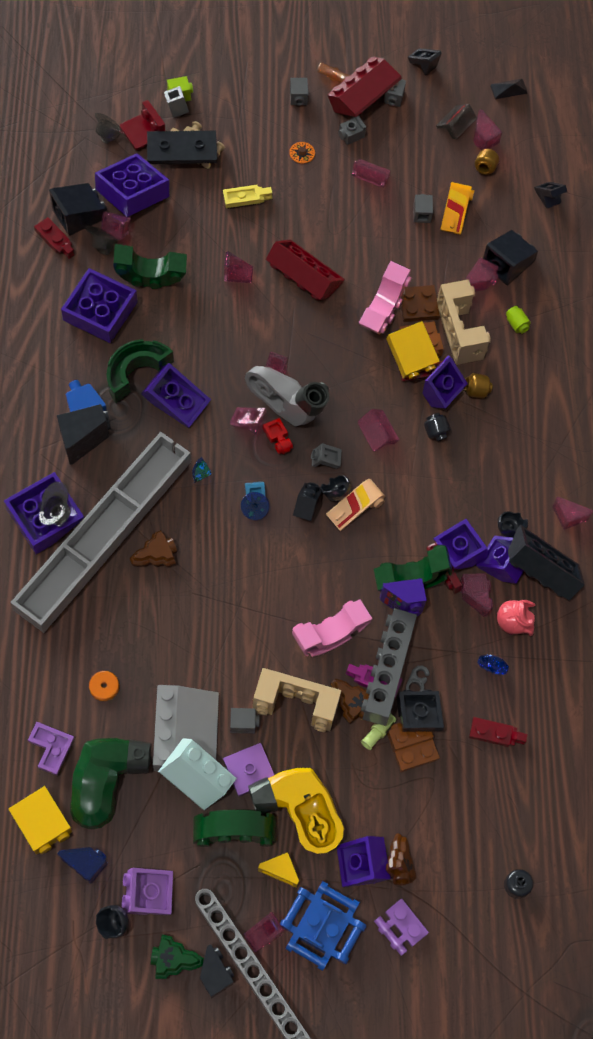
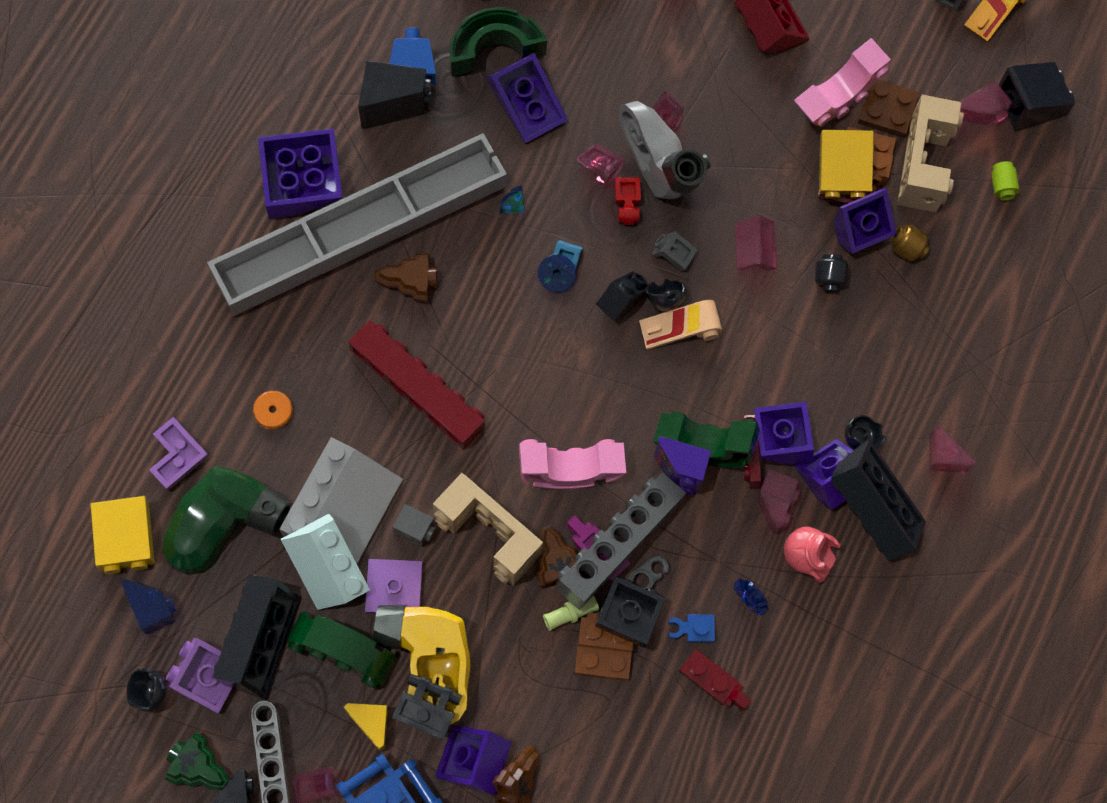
camera: 25 degrees right, 5 degrees up
(55, 505) = (310, 170): clear smoke piece -> none
(172, 847) = (257, 636): none -> black slope
(197, 623) = (416, 384): none -> dark red brick
(317, 846) = (422, 714): none -> black plate
(466, 702) = (697, 628): none -> blue plate

